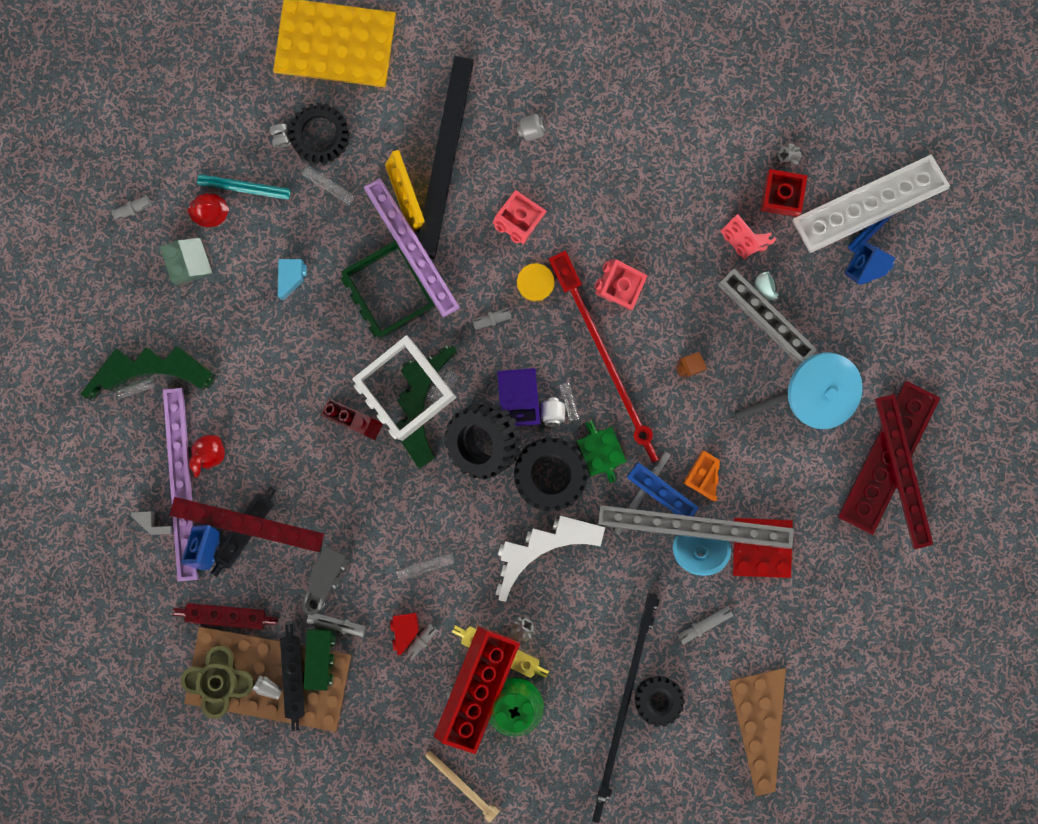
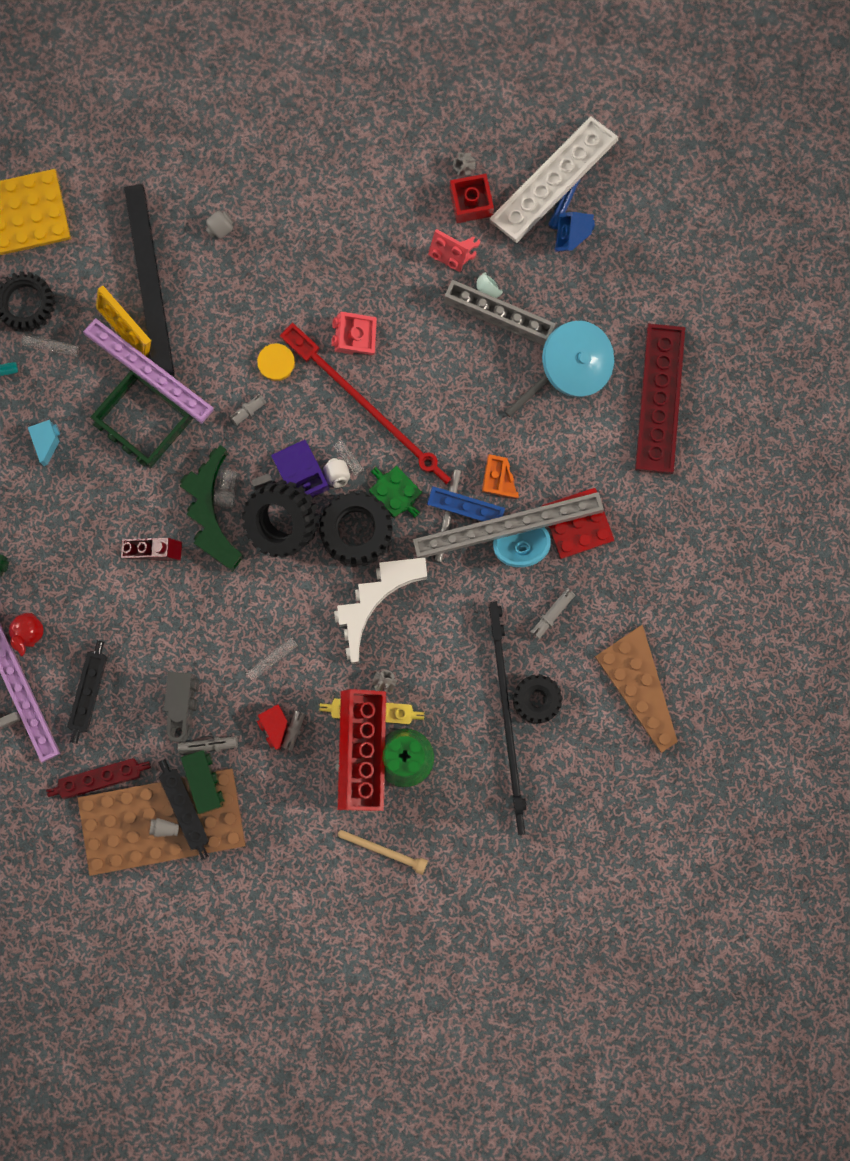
camera: 25 degrees left, 5 degrees down
(201, 547) = (51, 719): blue slope -> none
(202, 681) = (98, 845): olive plant -> none
(247, 524) = (87, 682): dark red plate -> none
(372, 402) = (218, 516): white window -> none
(478, 397) = (261, 481): none -> flat silver tile
(518, 217) = (238, 309): coral plate -> none
(690, 365) = (447, 382): dark orange slope -> none
(904, 471) = (678, 404): dark red plate -> none

